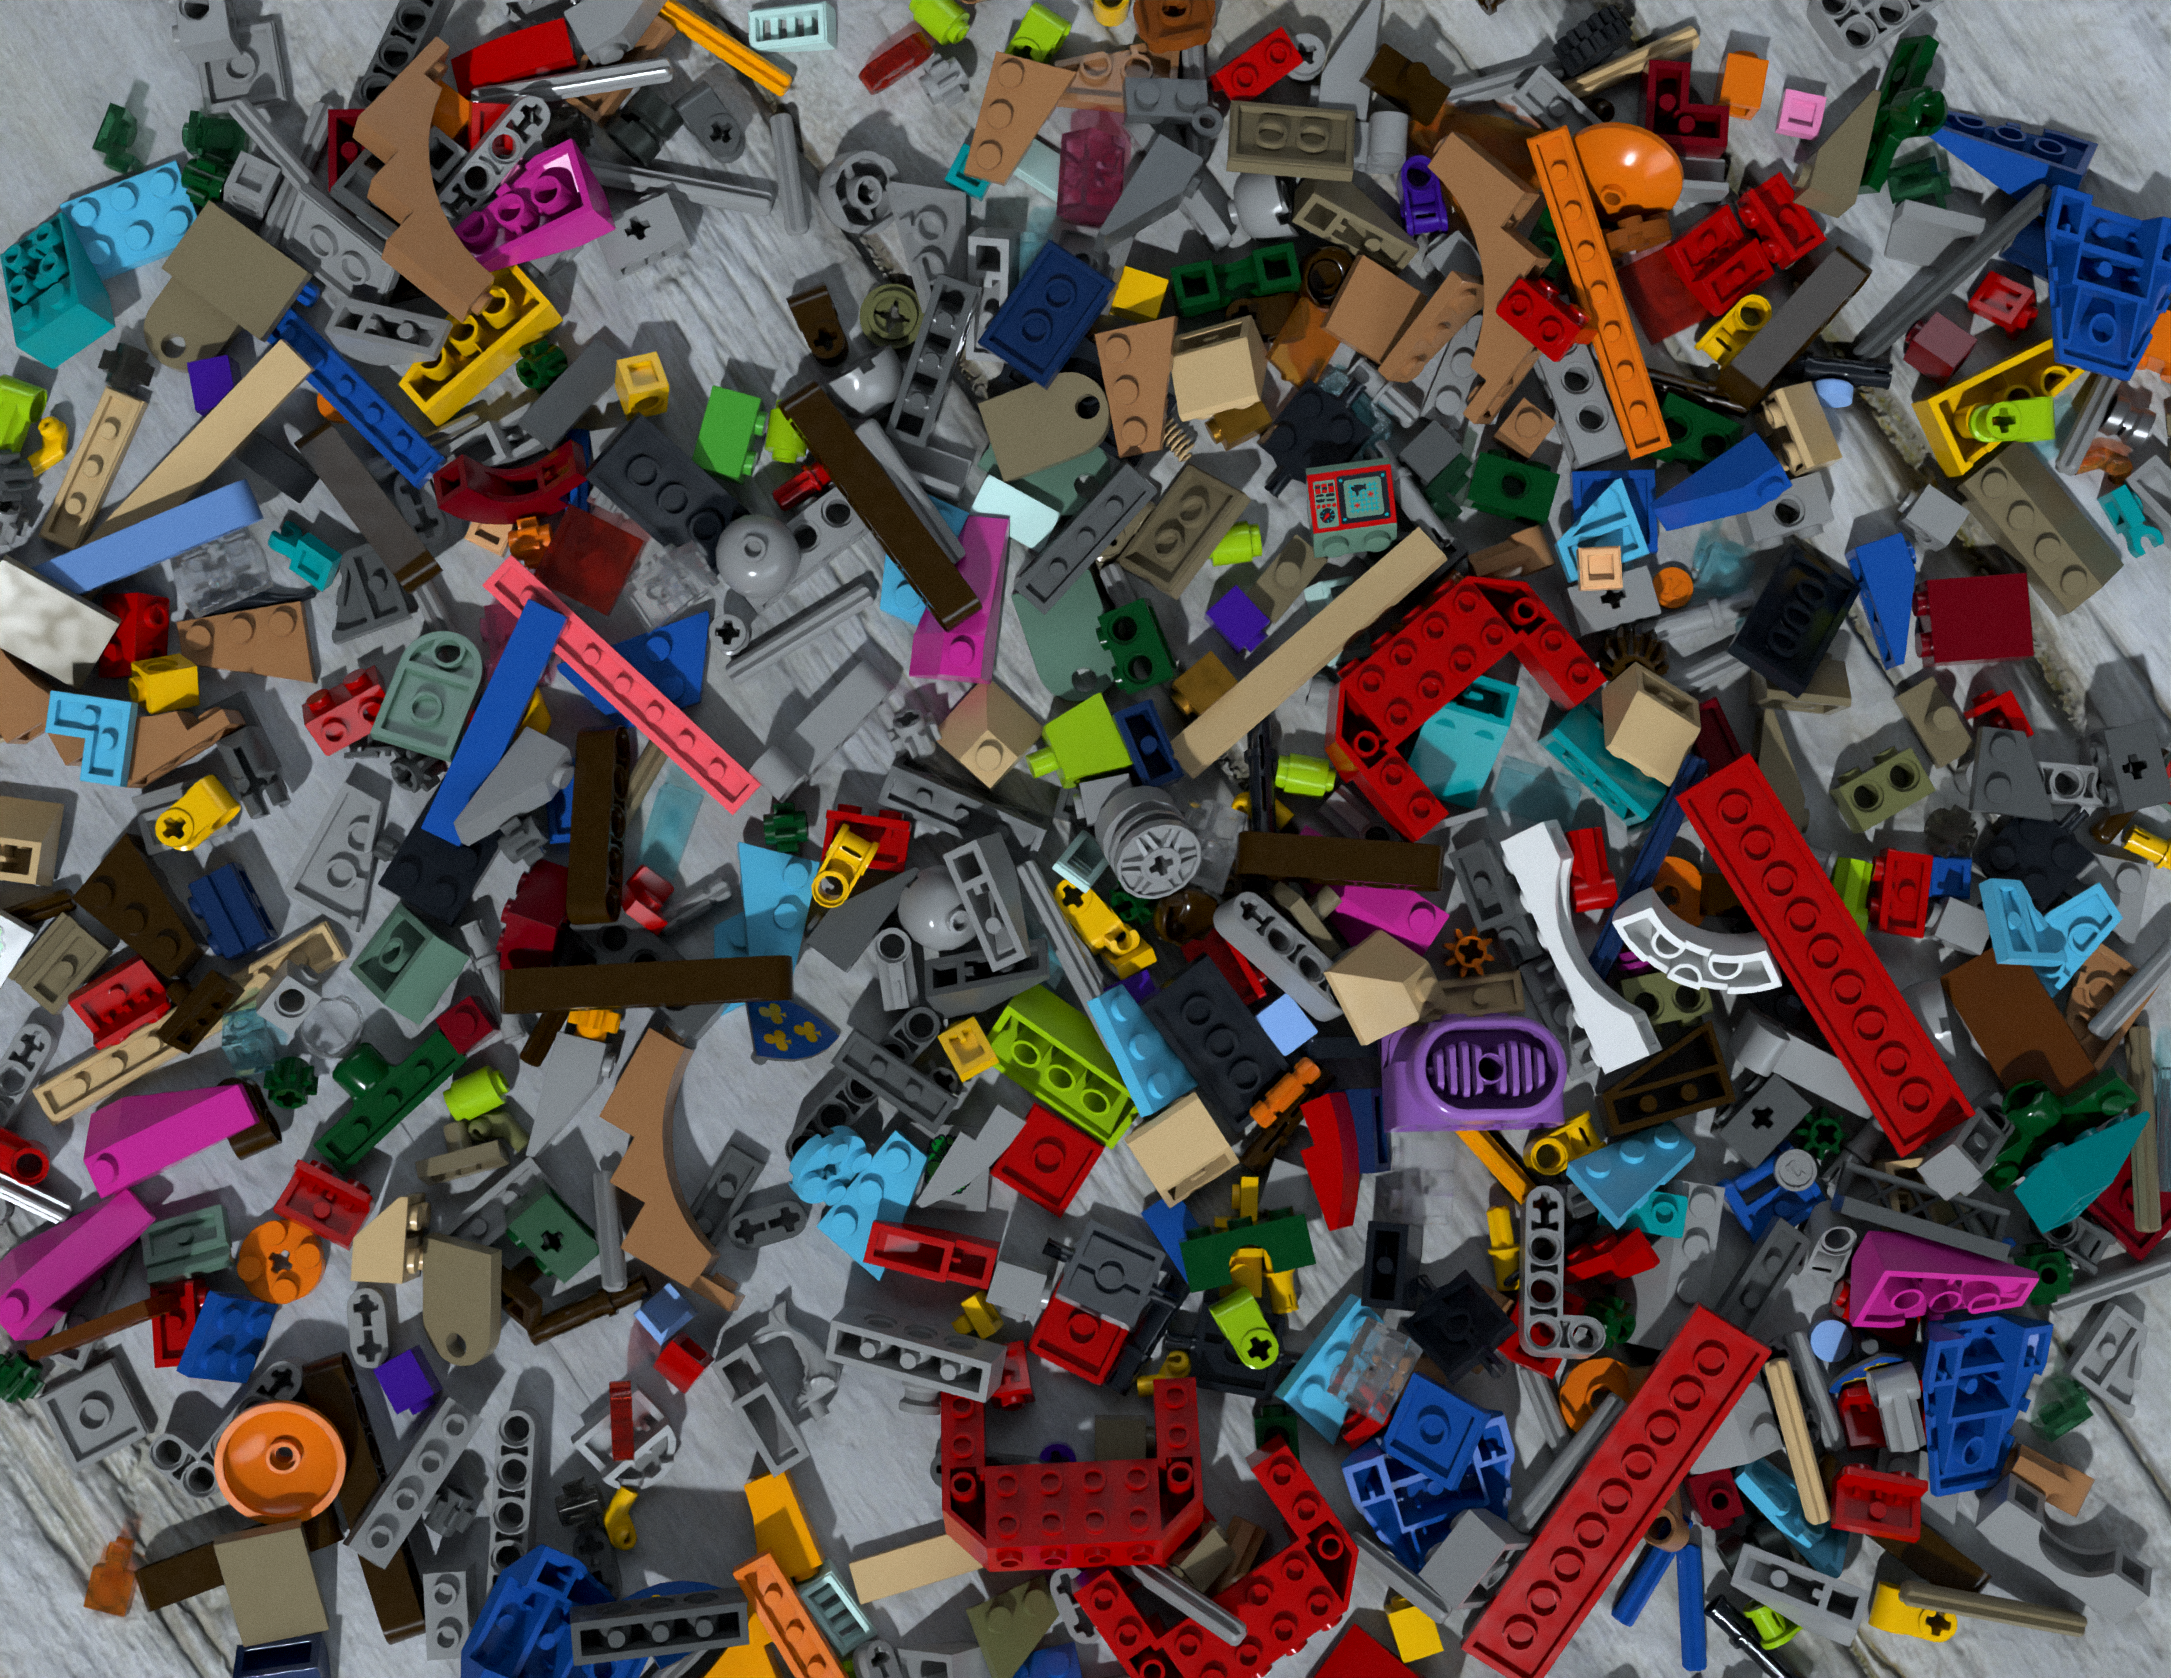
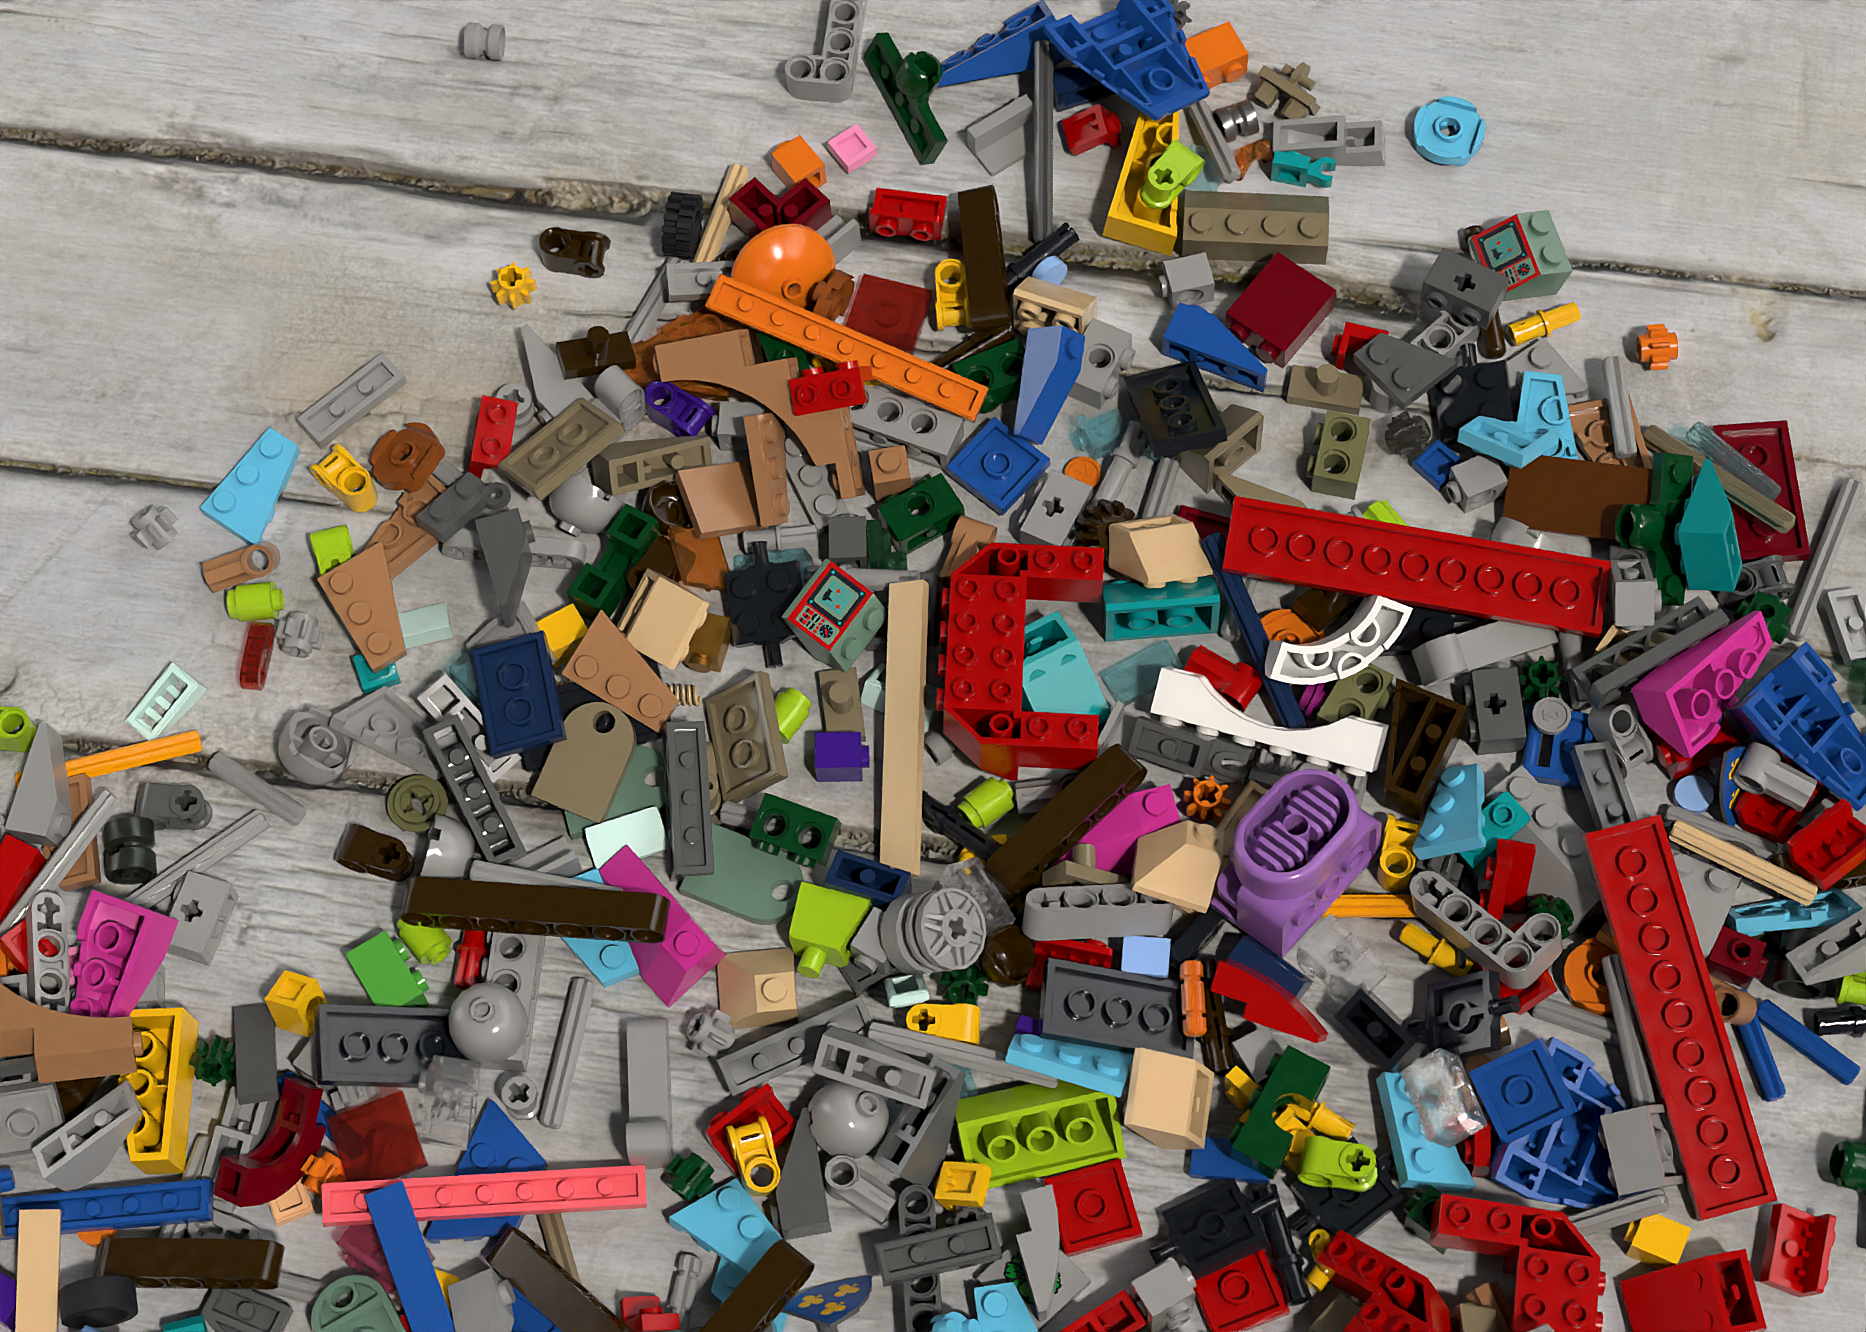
camera: 35 degrees left, 20 degrees down
(567, 124) = (75, 900): clear smoke gear -> none
(669, 829) = (613, 1264): clear light blue slope -> none
(1090, 175) = (456, 595): clear pink brick -> none
(1127, 954) = (999, 1021): yellow tile -> none
(1202, 685) = (861, 815): pearl gold brick -> none
(1599, 568) = (1026, 496): light nougat tile -> none
(1605, 523) = (1007, 480): medium azure wing -> none
(1718, 260) = (897, 270): red slope -> none
(1835, 169) = (907, 154): dark tan slope -> none
(1900, 893) = (1420, 498): red bracket -> none
(1918, 179) = (962, 114): clear green bracket -> none
(1938, 348) = (1081, 188): dark red brick -> none

